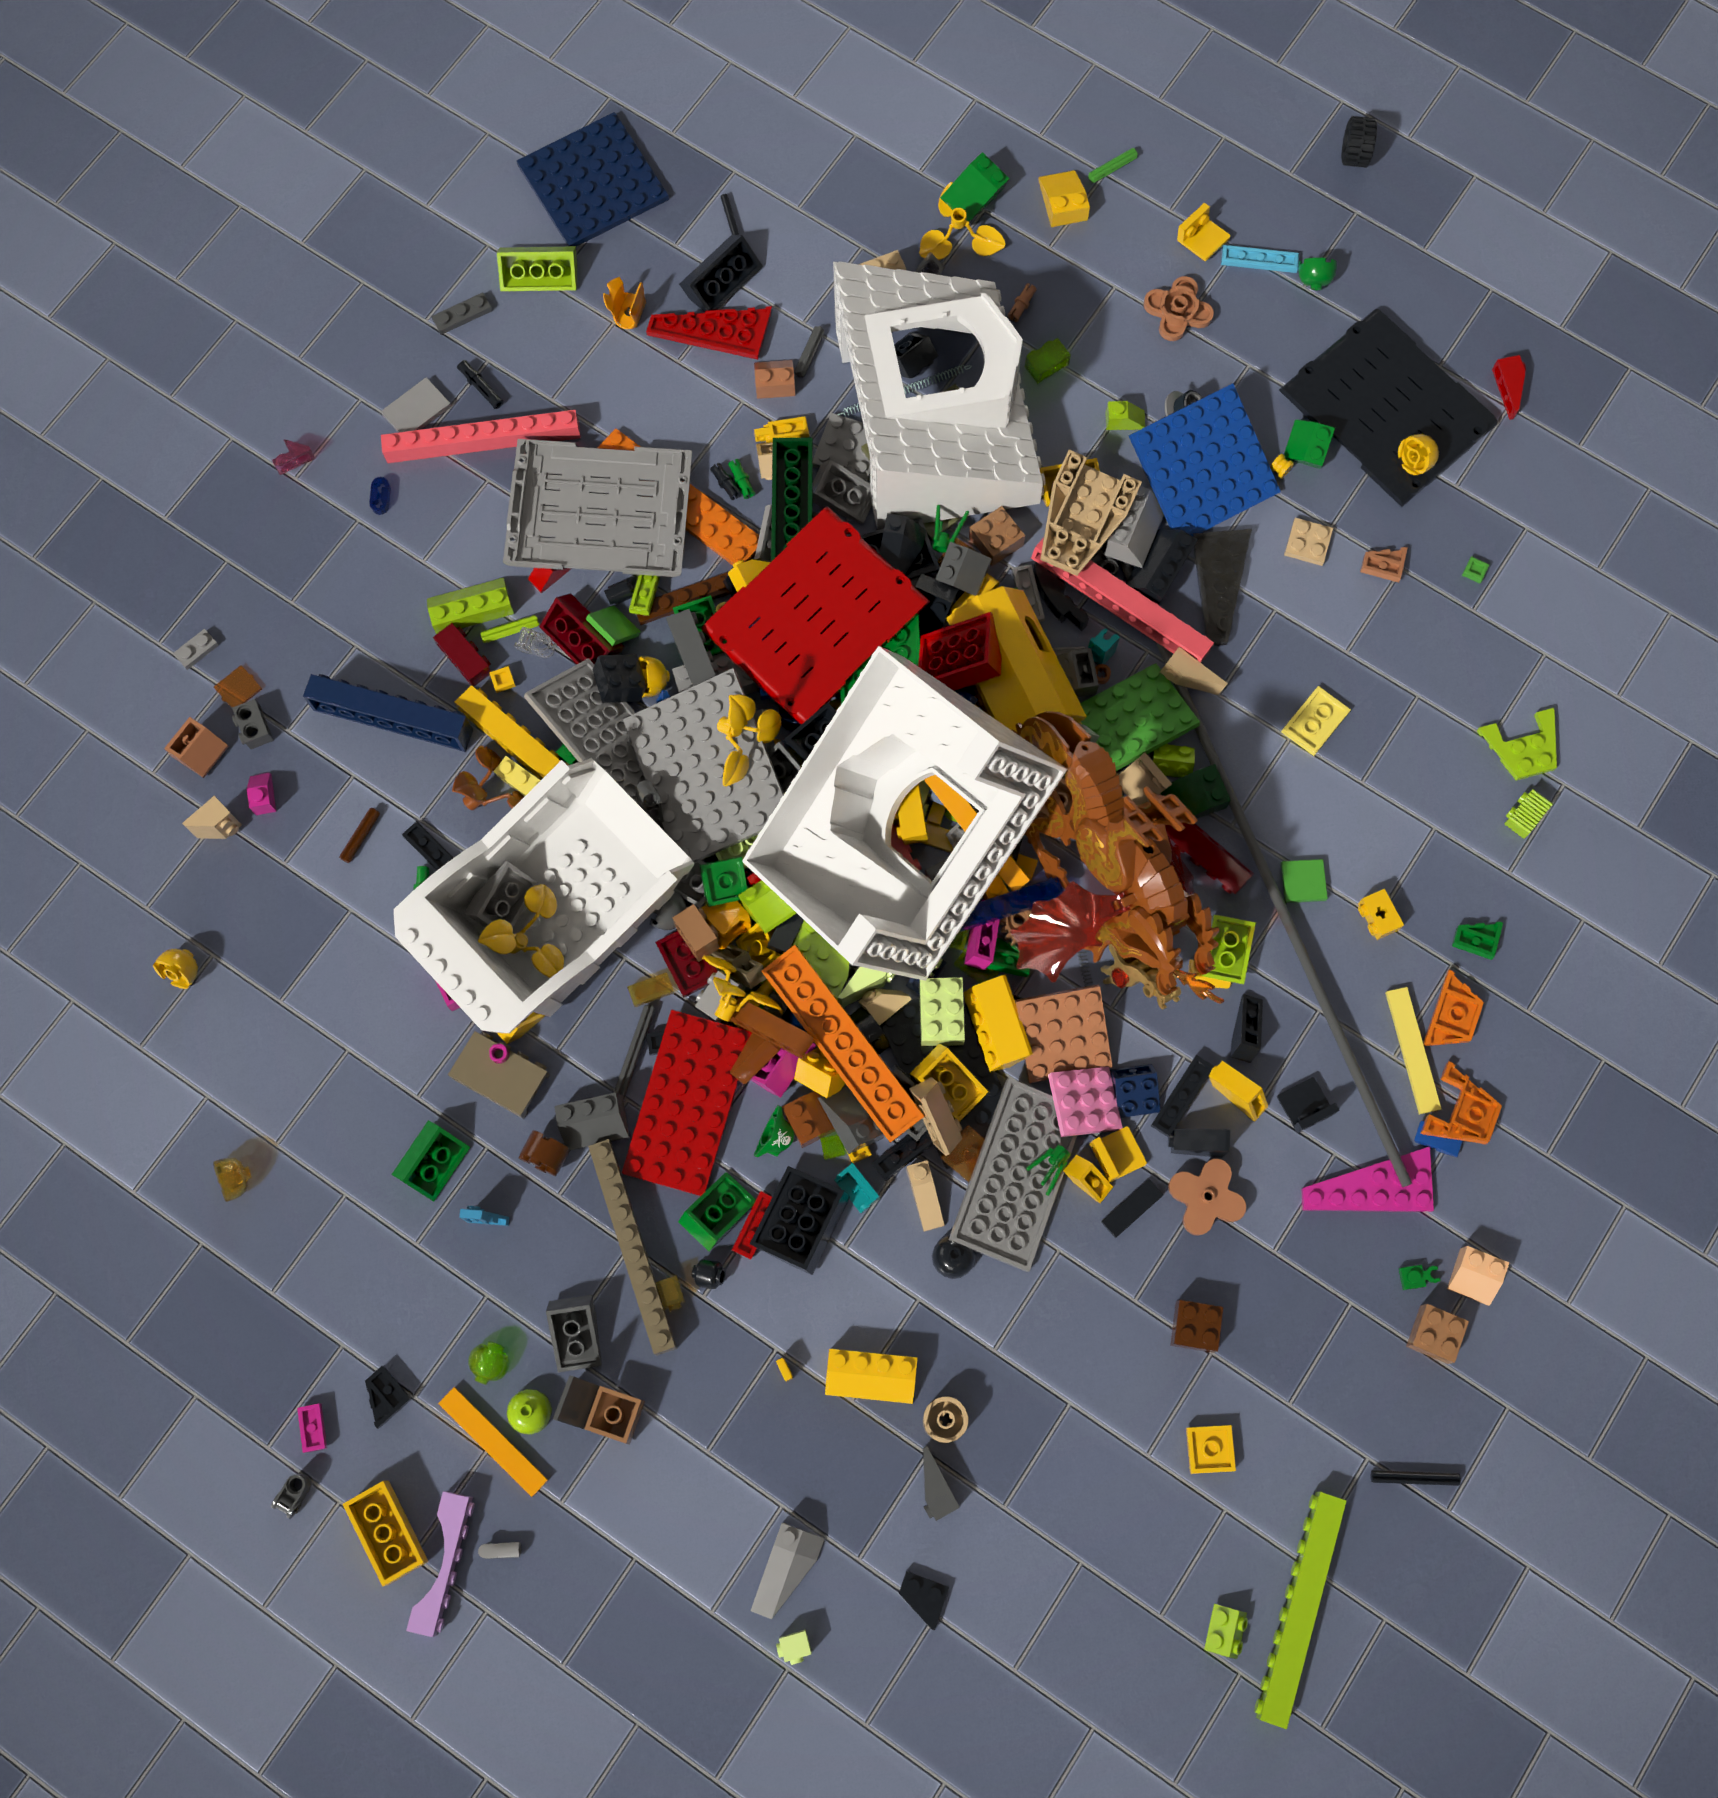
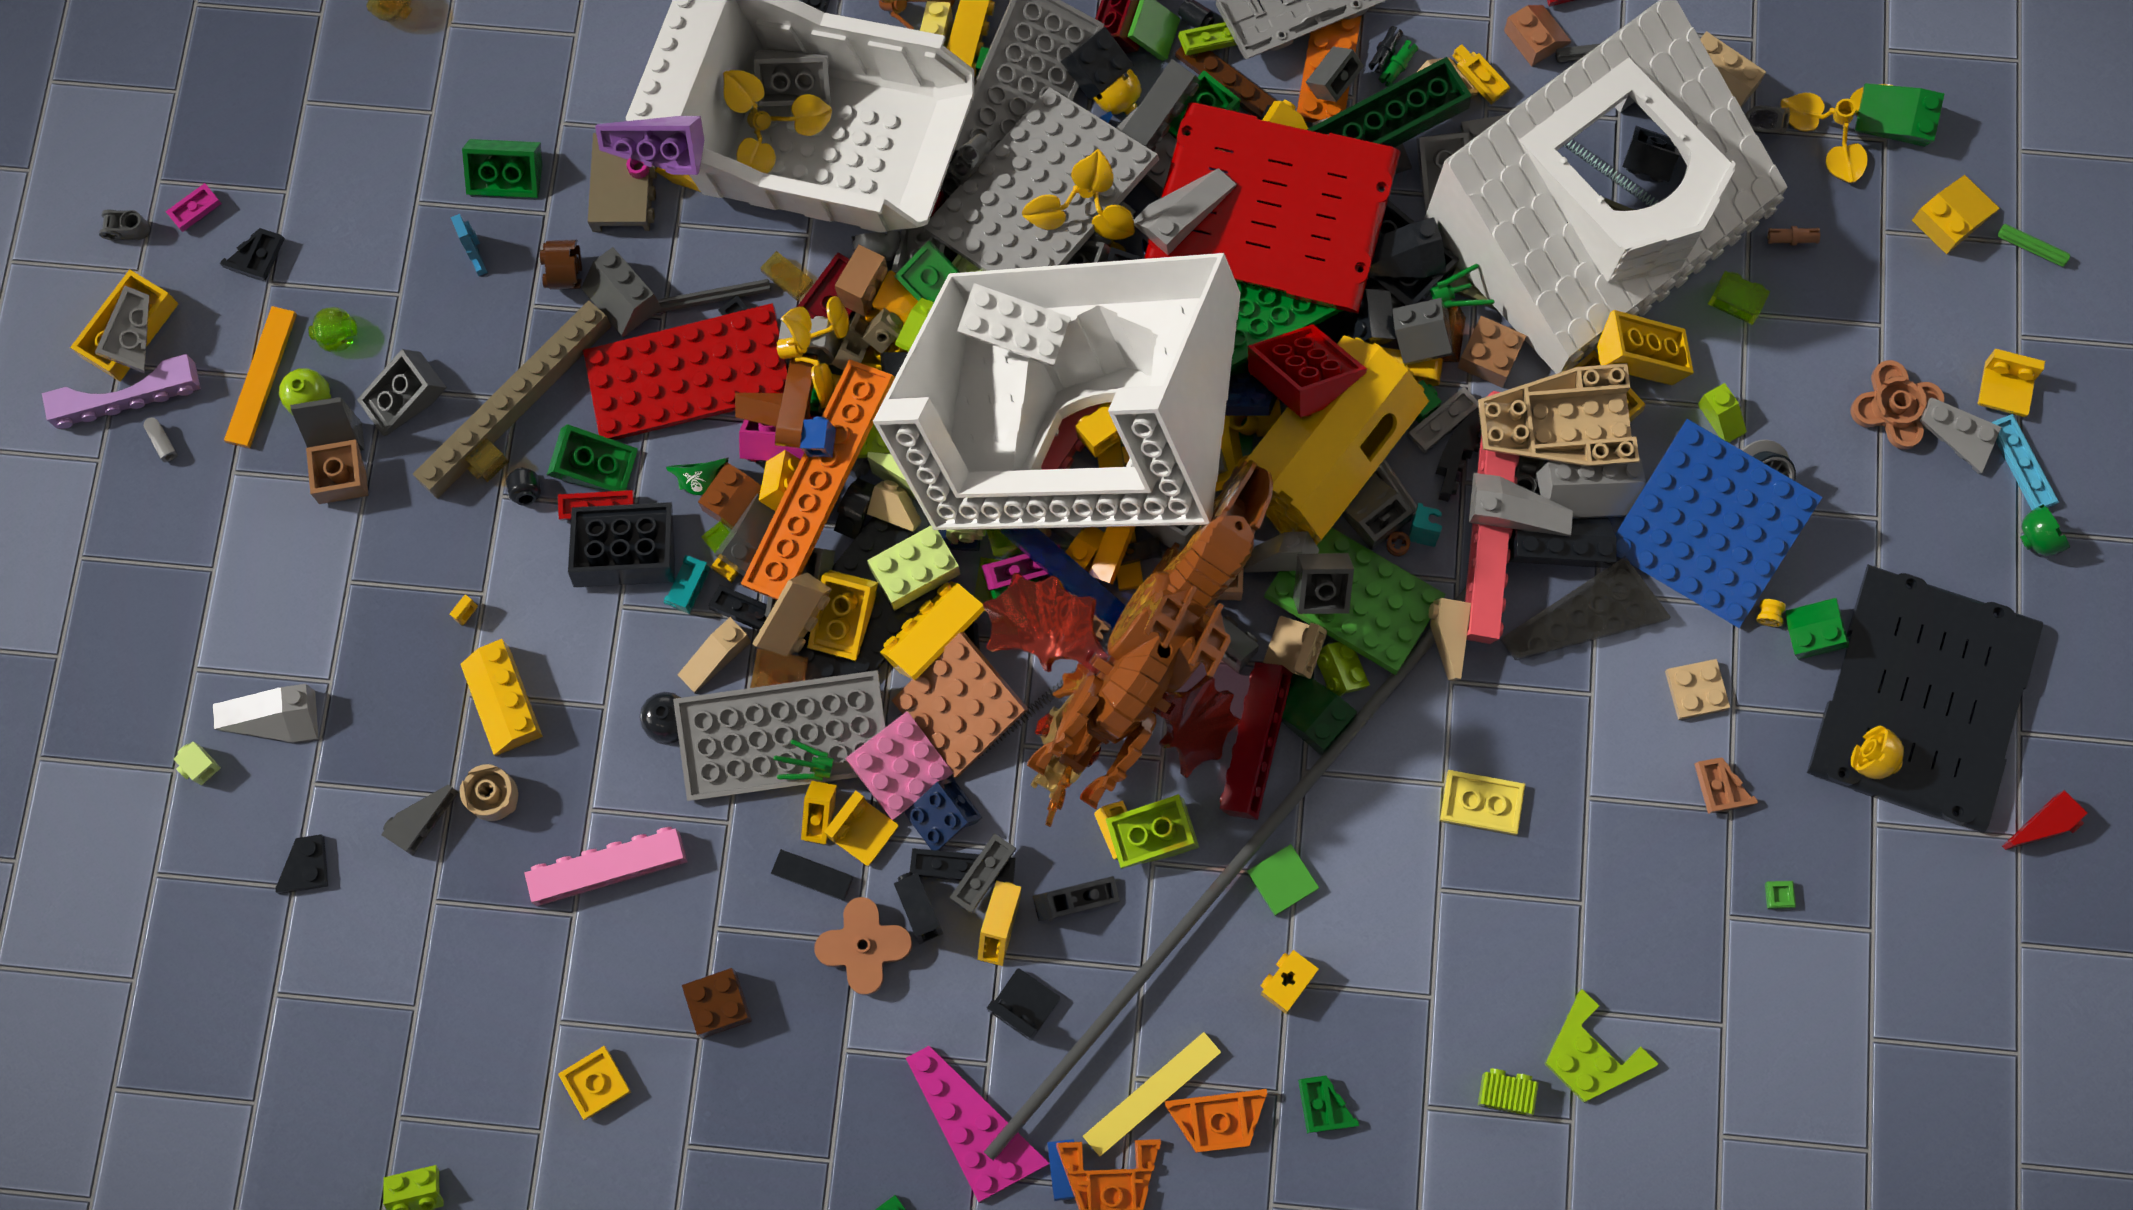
camera: 65 degrees right, 0 degrees up
(399, 1530) = (127, 331): none -> light grey wing
(524, 1009) = (663, 142): none -> medium lavender wedge
(730, 522) = (1334, 74): none -> dark grey brick
(745, 937) = (883, 330): none -> dark tan brick
(784, 677) = (1178, 213): none -> light grey wedge
(813, 1023) = (818, 437): none -> blue brick
(817, 833) = (1013, 324): none -> white plate
(1048, 1359) = (605, 867): none -> bright pink brick
(1056, 434) = (1647, 346): none -> yellow slope
(1117, 732) = (1323, 583): none -> dark grey brick
(1125, 582) = (1508, 505): none -> light grey wedge
(1199, 1082) = (982, 873): none -> dark grey plate
(1221, 280) = (1963, 432): none -> light grey wing

